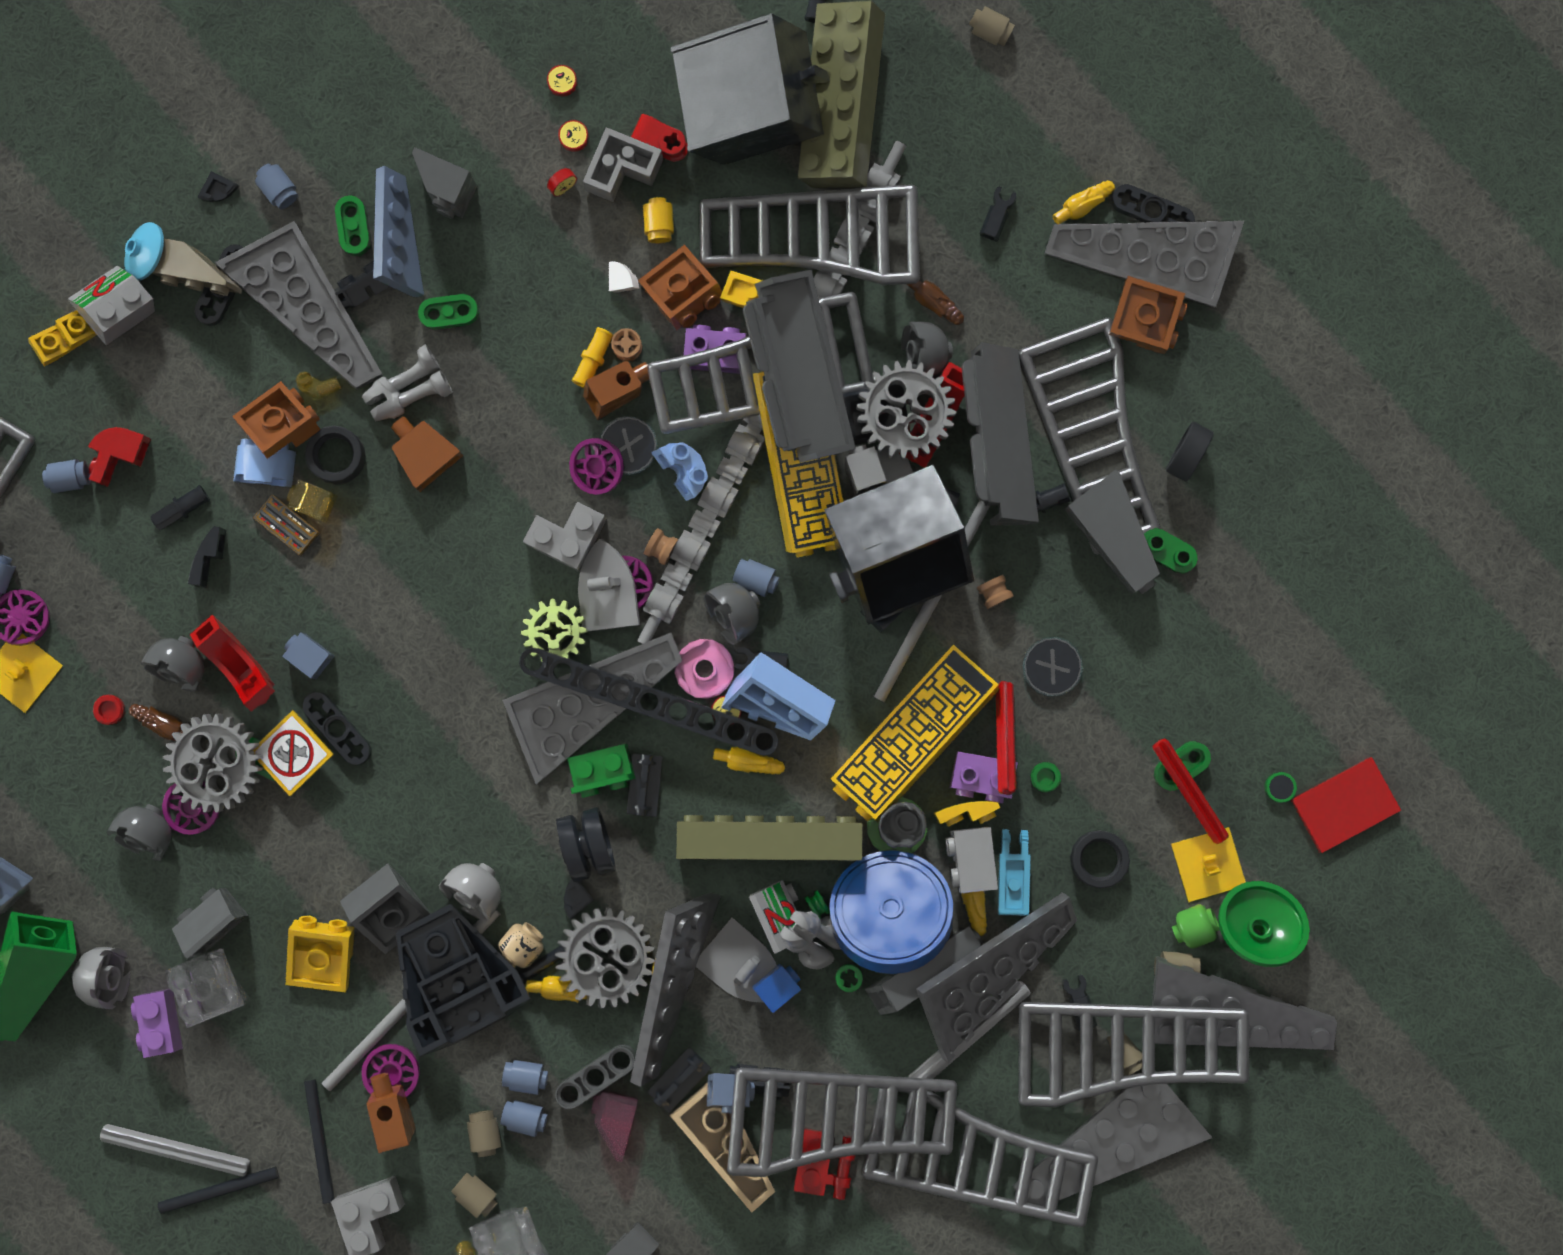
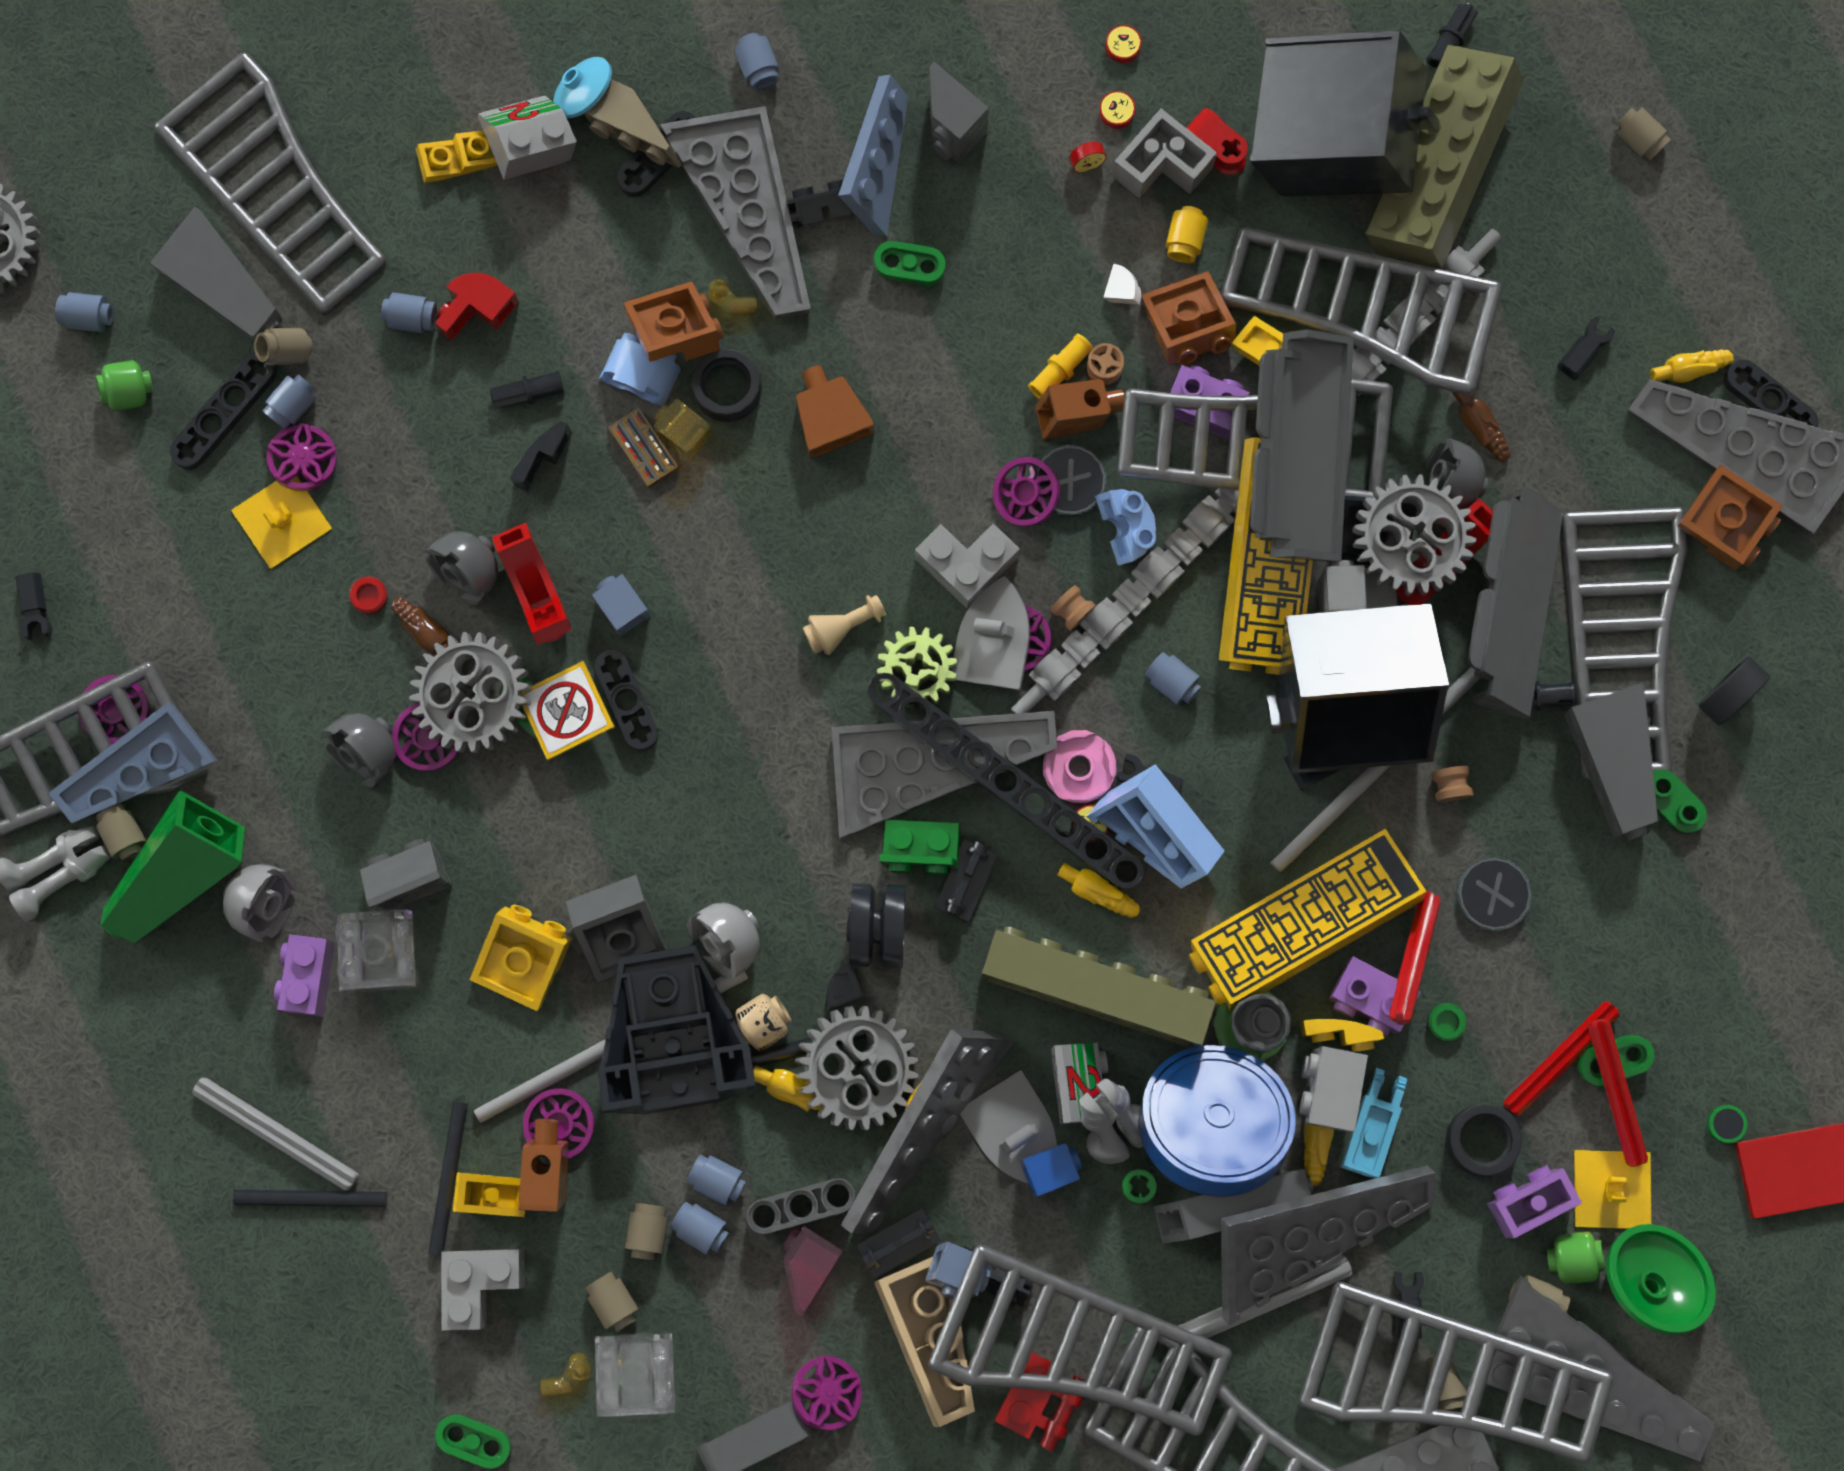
camera: 15 degrees right, 5 degrees down
(217, 188) = (688, 44): black tile -> none
(350, 1146) = (487, 1195): none -> yellow slope
(352, 226) = (830, 134): green plate -> none
(398, 401) = (814, 329): light grey piece -> none
(476, 625) = (828, 631): none -> tan piece
(659, 1211) = (826, 1393): none -> magenta wheel
(734, 610) = (1138, 703): dark grey cylinder -> none
(817, 904) = (1130, 1083): green bush -> none
(1139, 780) = (1557, 1062): none -> red axle
(1151, 895) = (1534, 1202): none -> medium lavender brick

